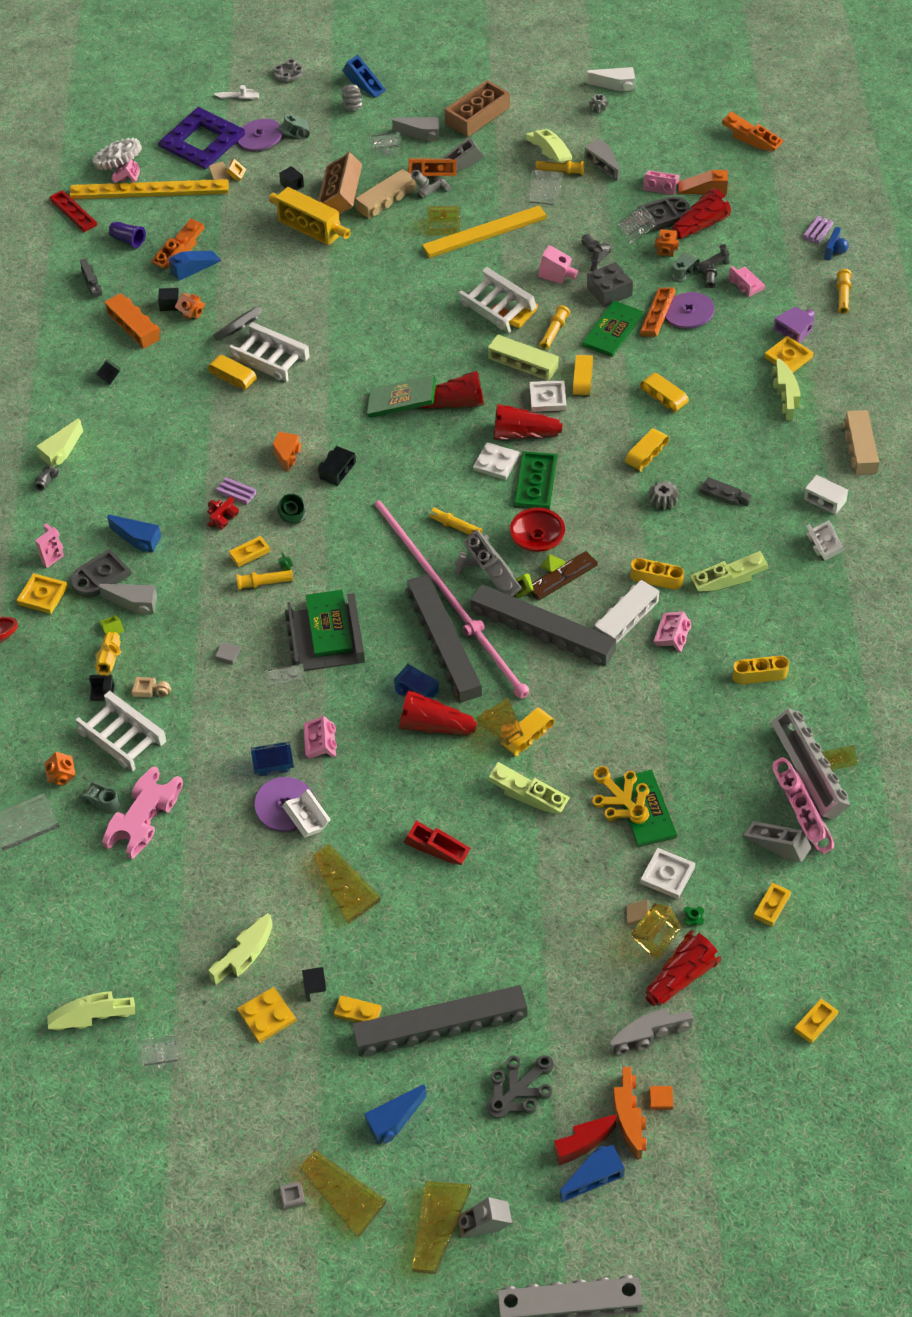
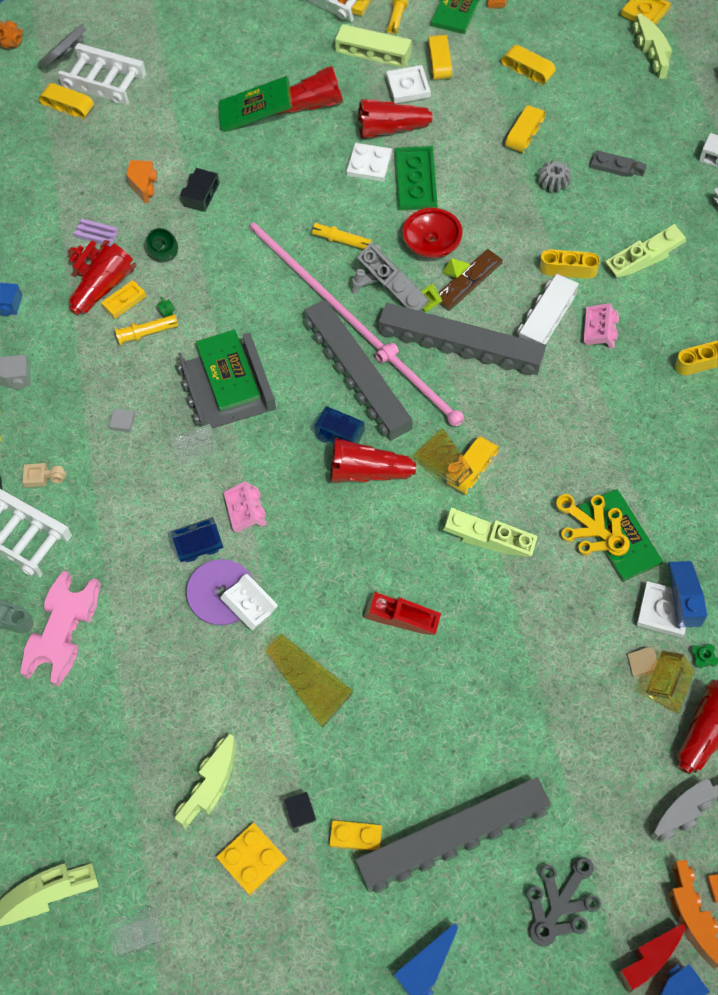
camera: 10 degrees left, 10 degrees up
(238, 524) = (105, 271): none -> red cone
(687, 862) = (687, 595): none -> blue slope

